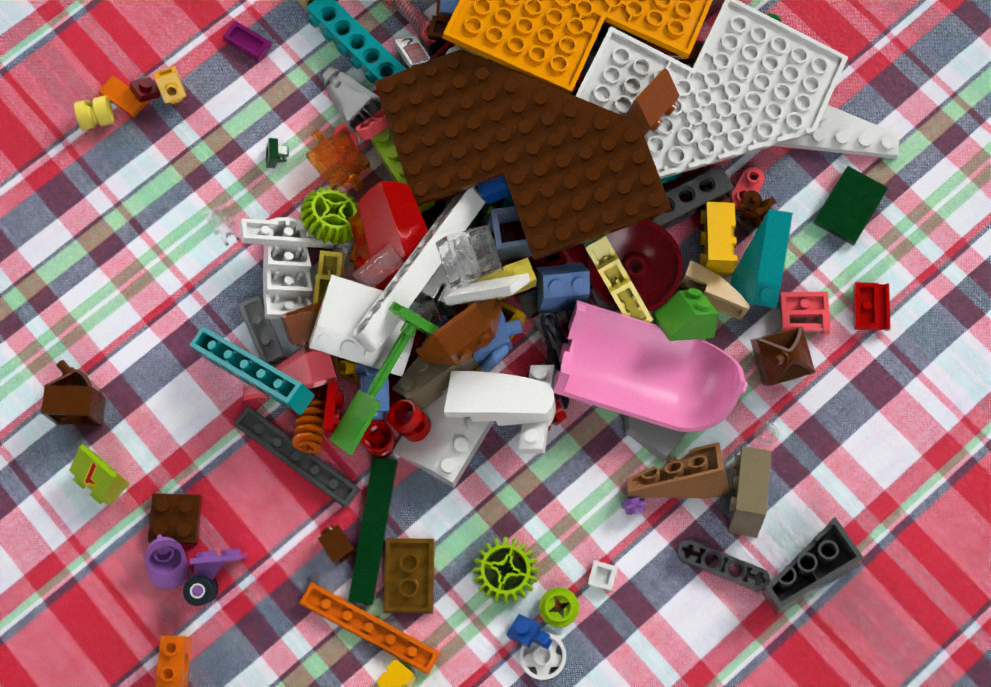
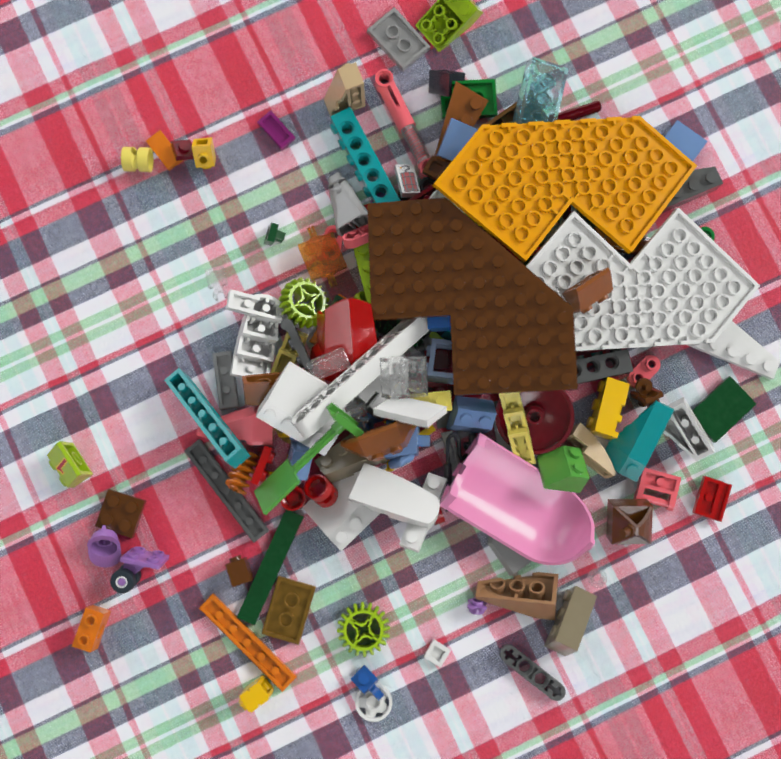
camera: 10 degrees right, 10 degrees up
(73, 399) = (64, 396): reddish brown piece -> none
(332, 257) = (296, 342): none -> dark grey plate
(563, 596) = (404, 673): lime gear -> none
(816, 237) = (687, 431): none -> white wedge
(816, 566) = (604, 696): dark grey wedge -> none

